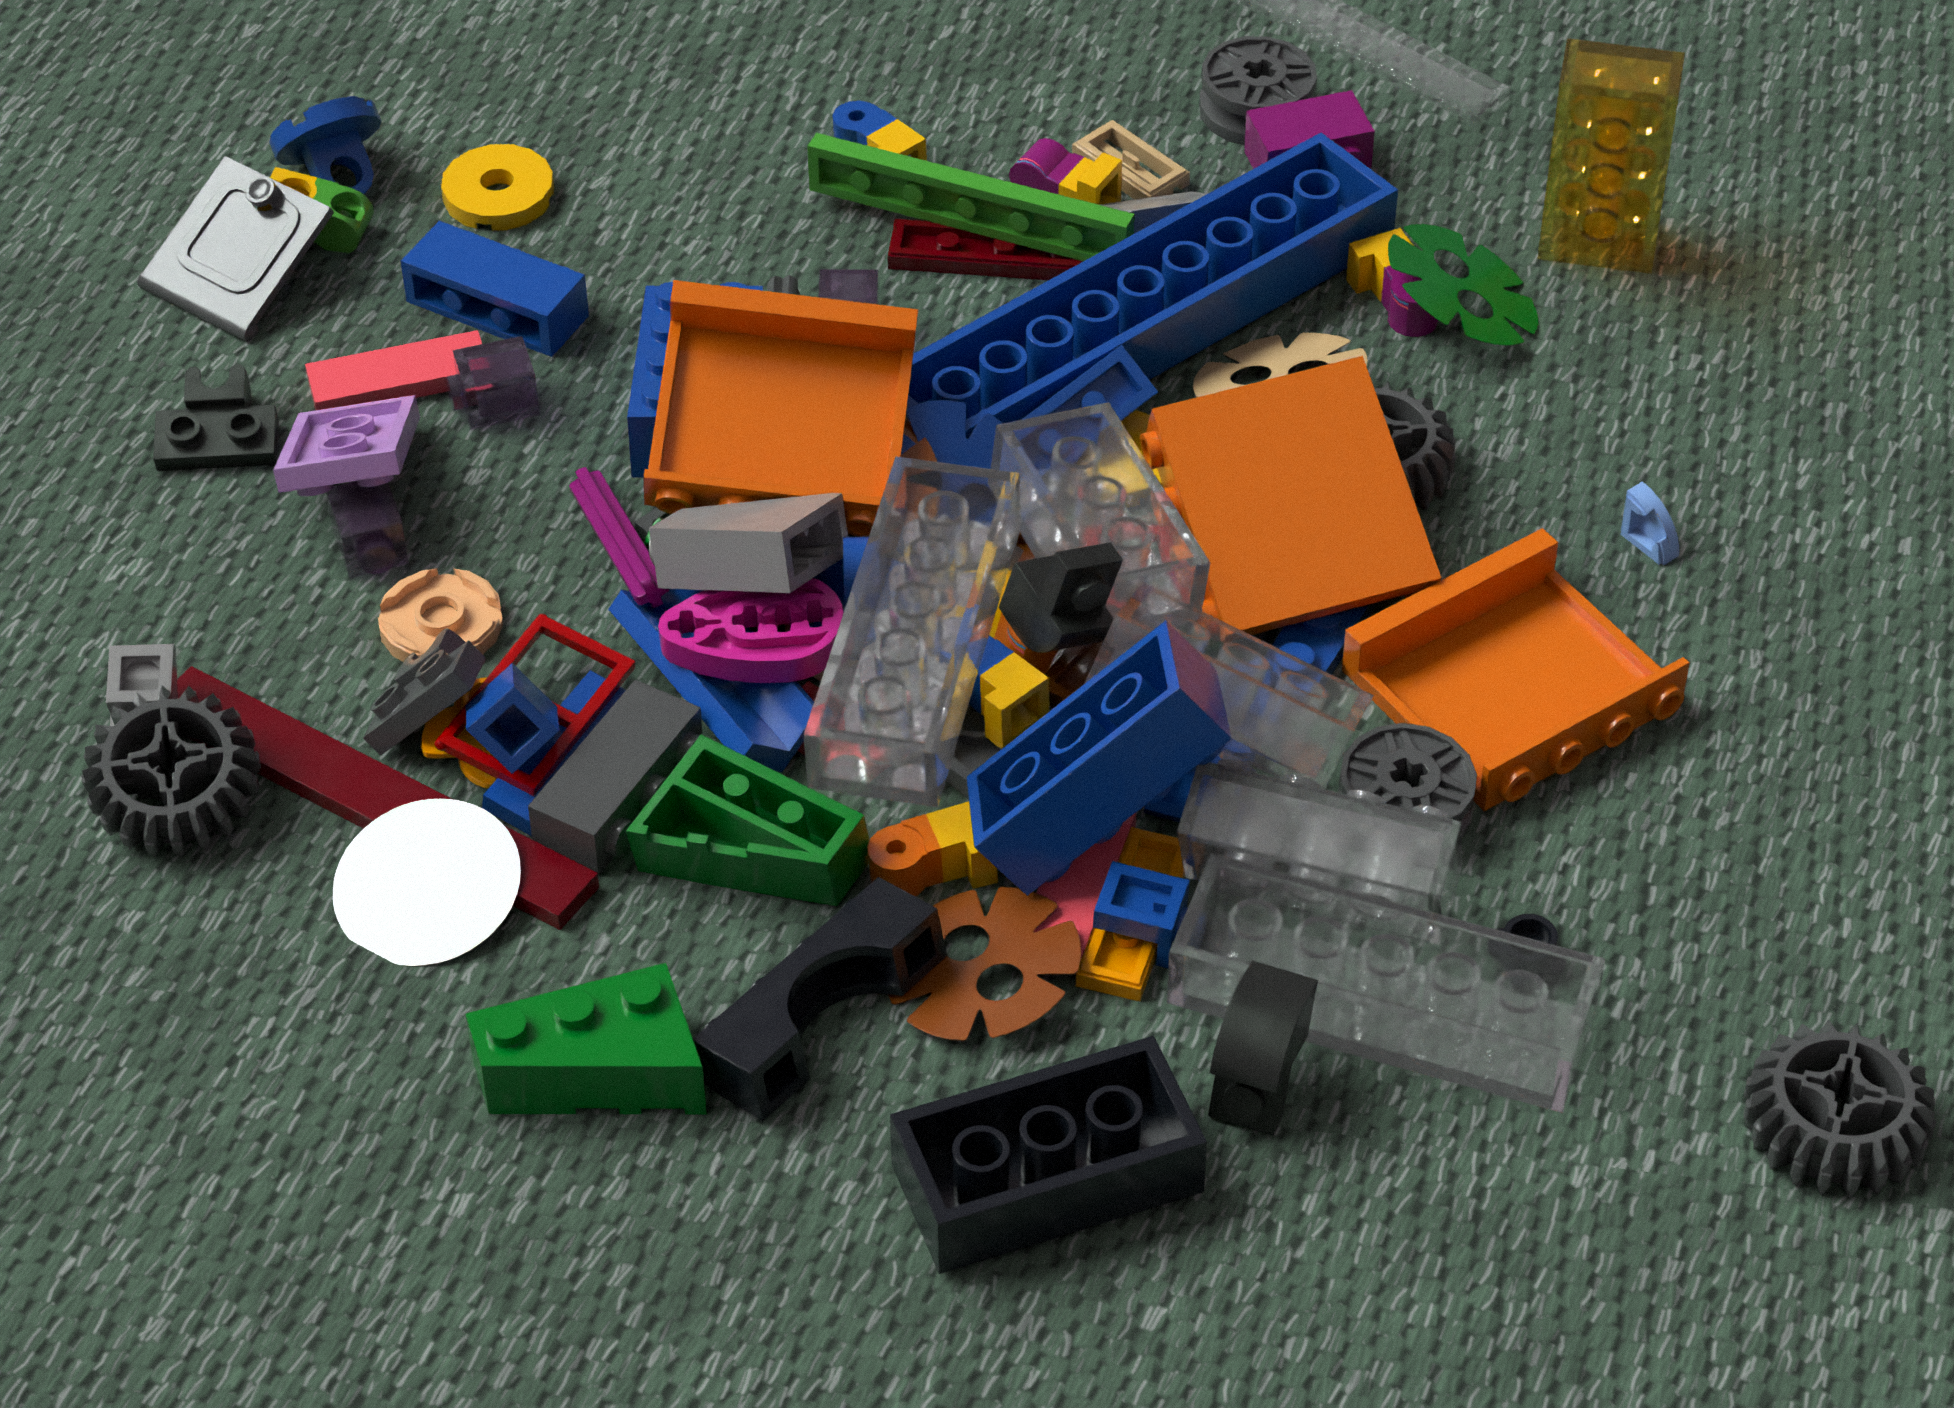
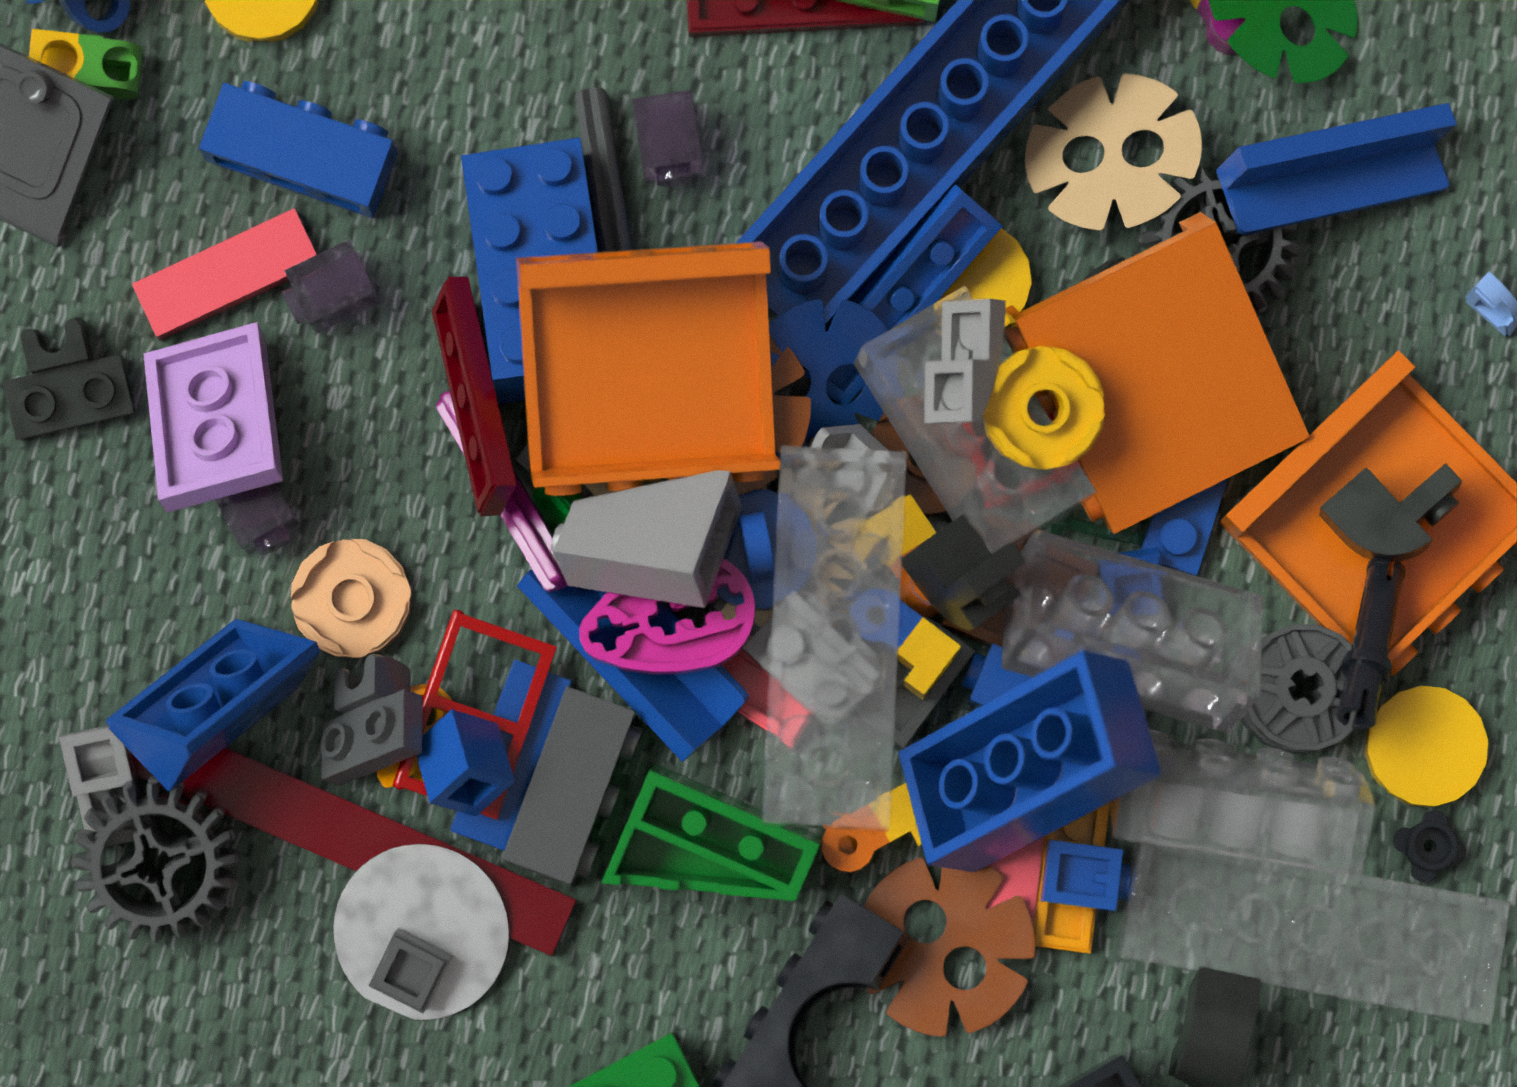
camera: 10 degrees left, 35 degrees up
(280, 645) = (211, 698): none -> blue slope
(405, 908) = (410, 970): none -> dark grey tile
(606, 453) = (473, 397): none -> dark red tile
(1097, 429) = (970, 357): none -> light grey slope
(1160, 509) = (1078, 417): none -> yellow tile
(1481, 741) = (1367, 662): none -> black pin
(1498, 388) = (1336, 170): none -> blue panel
(1514, 664) = (1379, 525): none -> pearl dark grey brick
(1536, 865) = (1426, 746): none -> yellow tile

